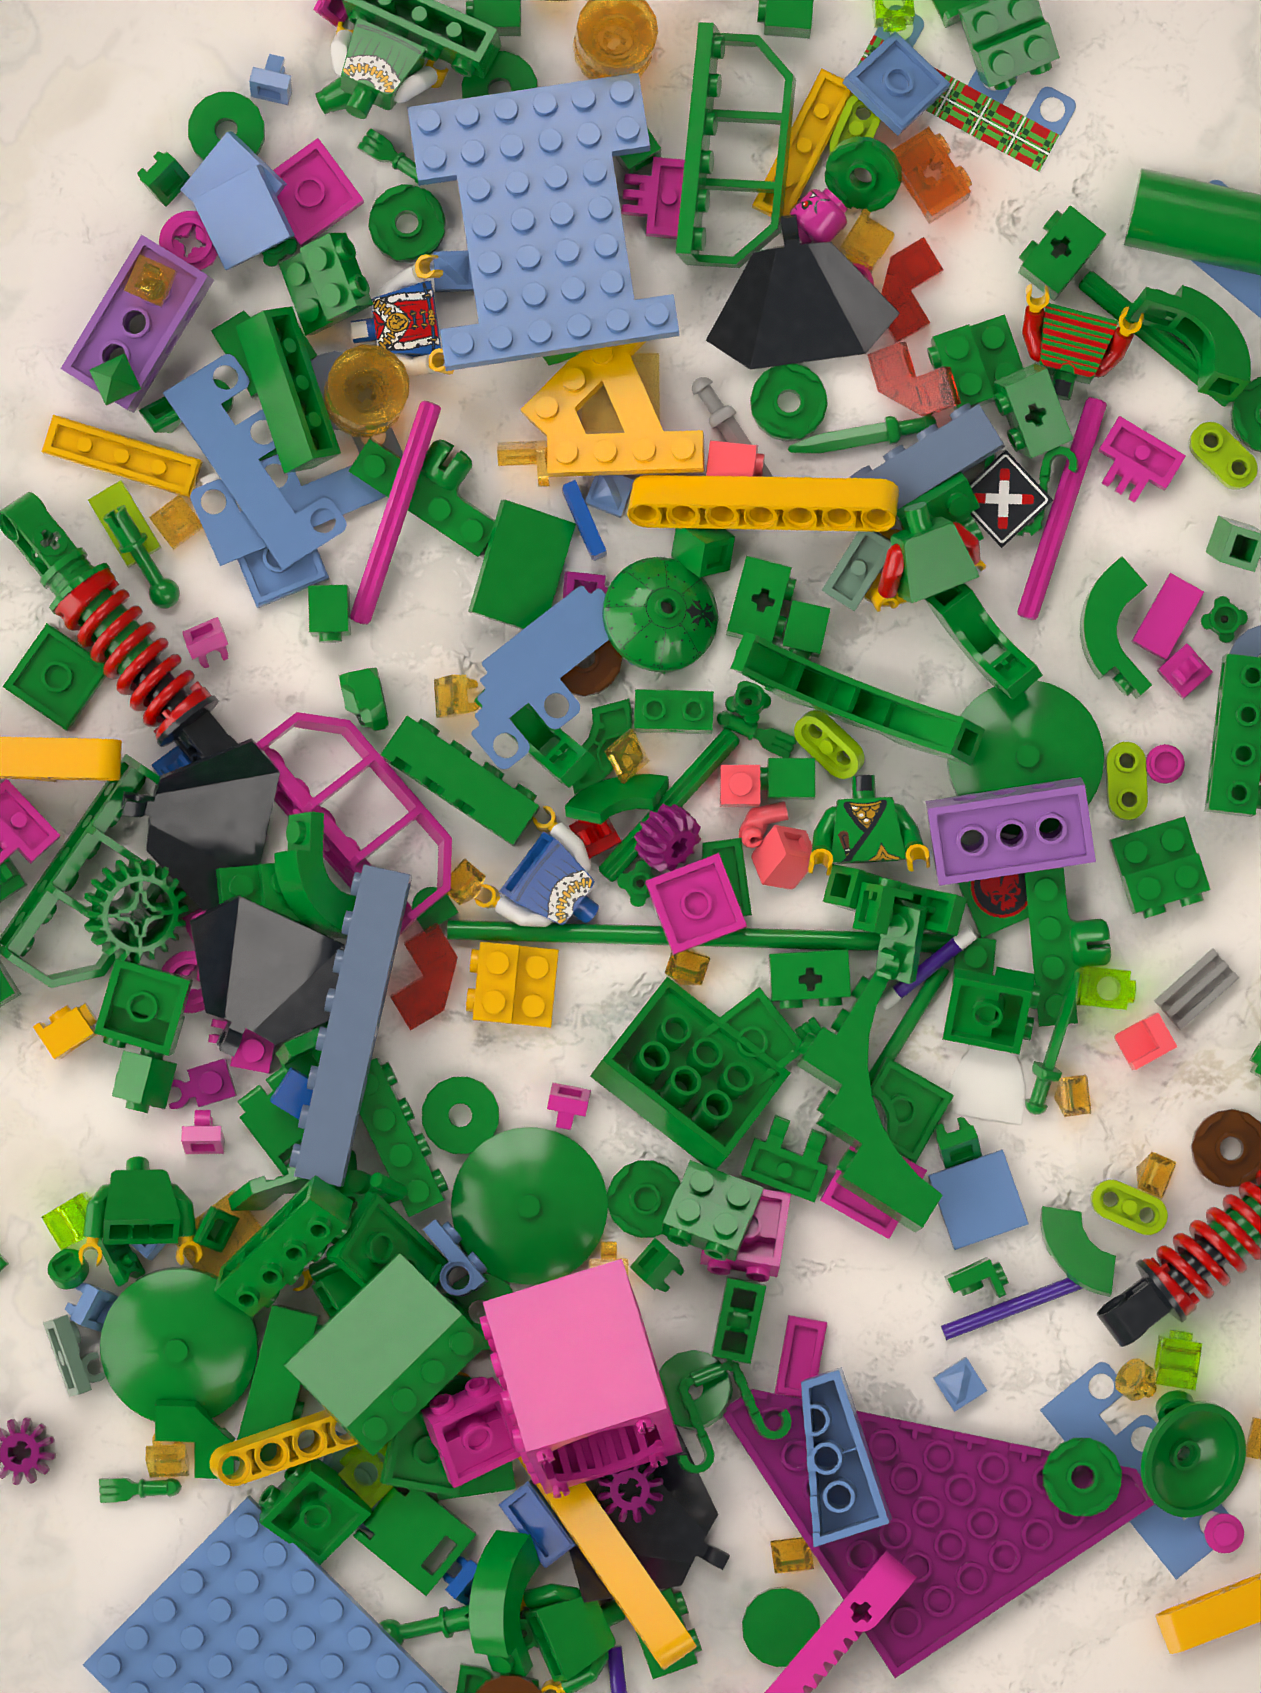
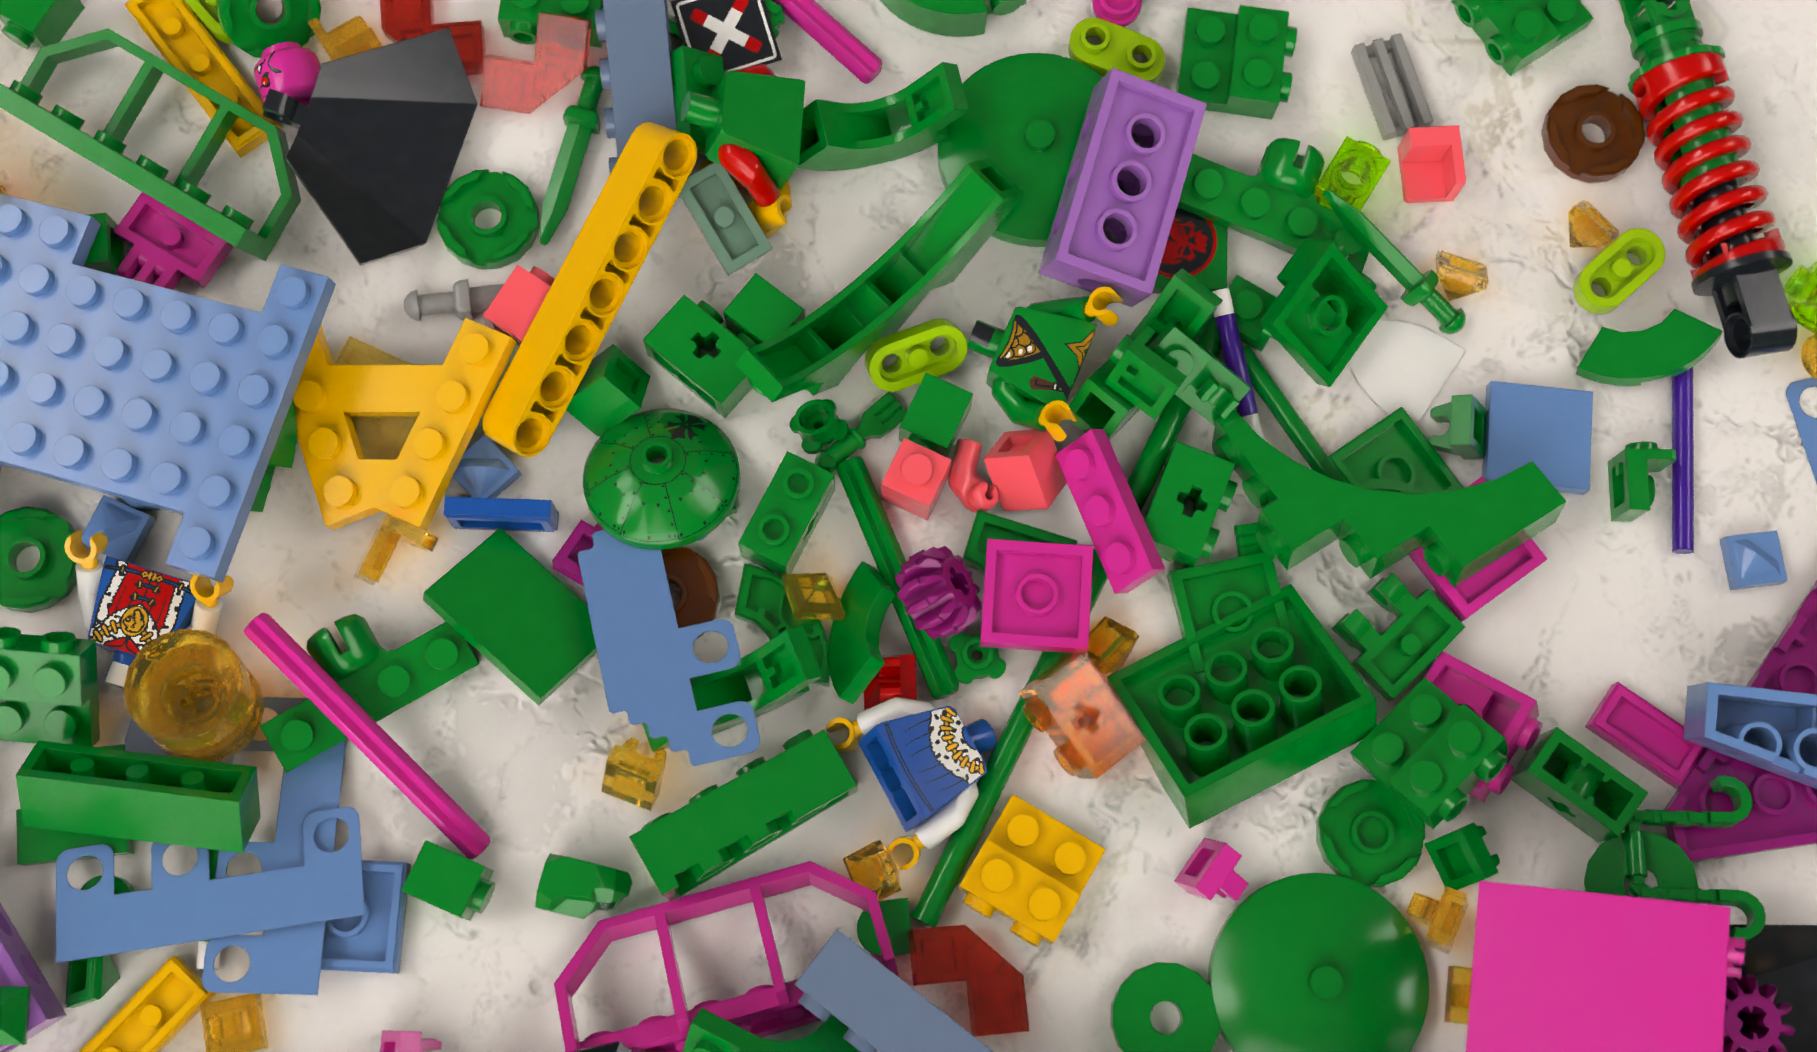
camera: 70 degrees left, 10 degrees down
(627, 992) = (1105, 729): none -> clear orange brick
(777, 926) = (1109, 511): none -> dark pink plate

